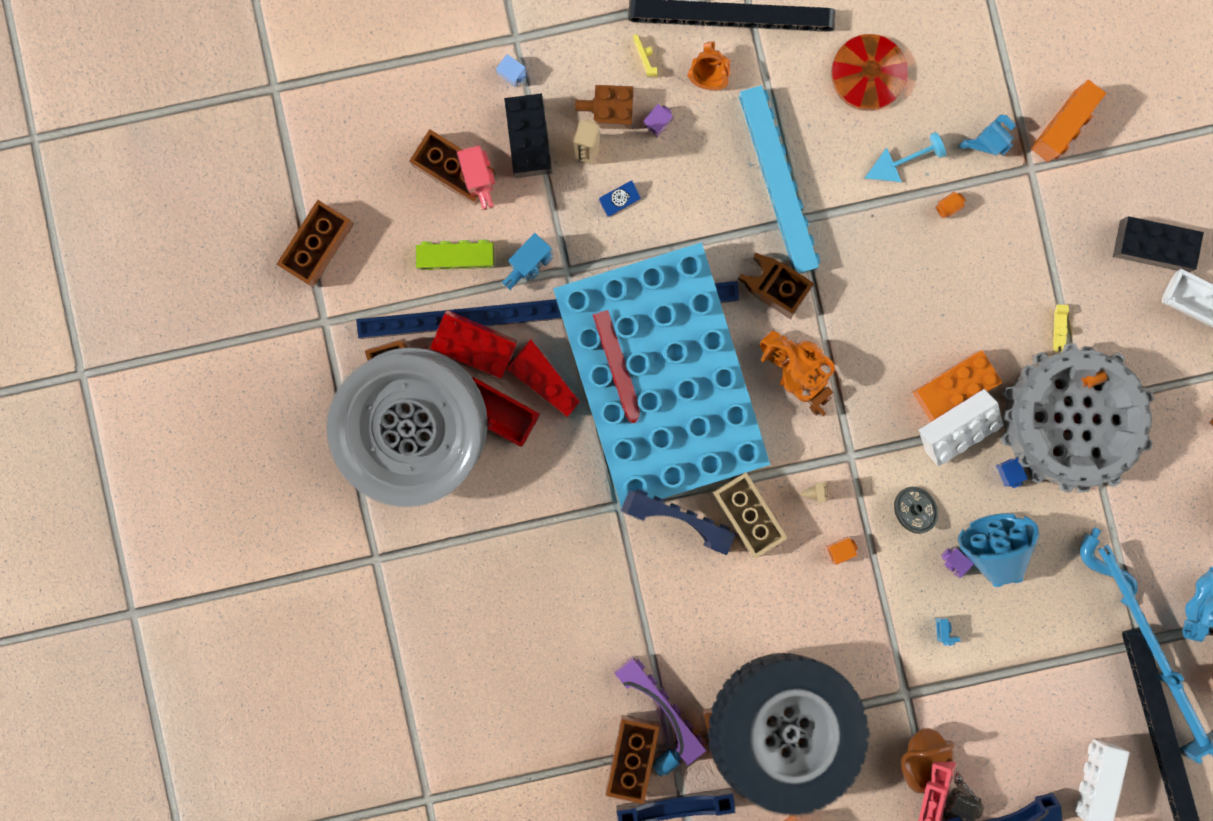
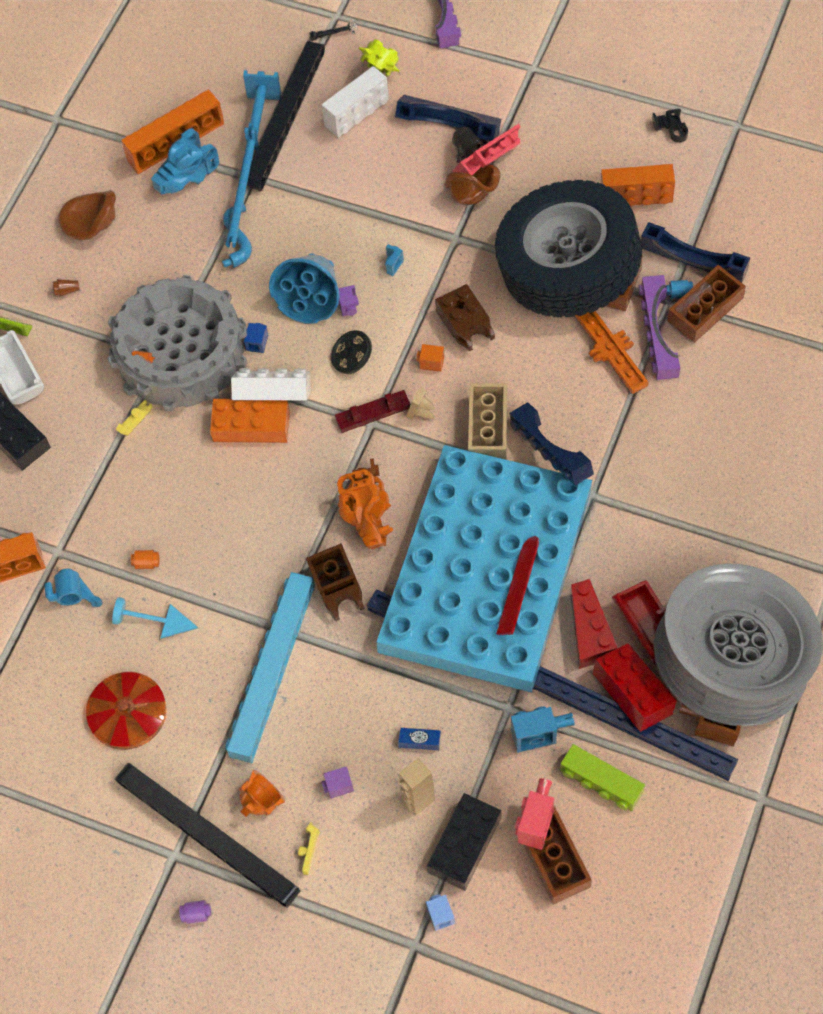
camera: 145 degrees left, 25 degrees down
(315, 243) = (728, 866): dark orange brick -> none
(610, 107) = (372, 819): dark orange brick -> none
(690, 660) = (613, 349): none -> orange hinge
(834, 606) = (464, 316): none -> reddish brown brick
(858, 467) = (372, 411): none -> dark red hinge

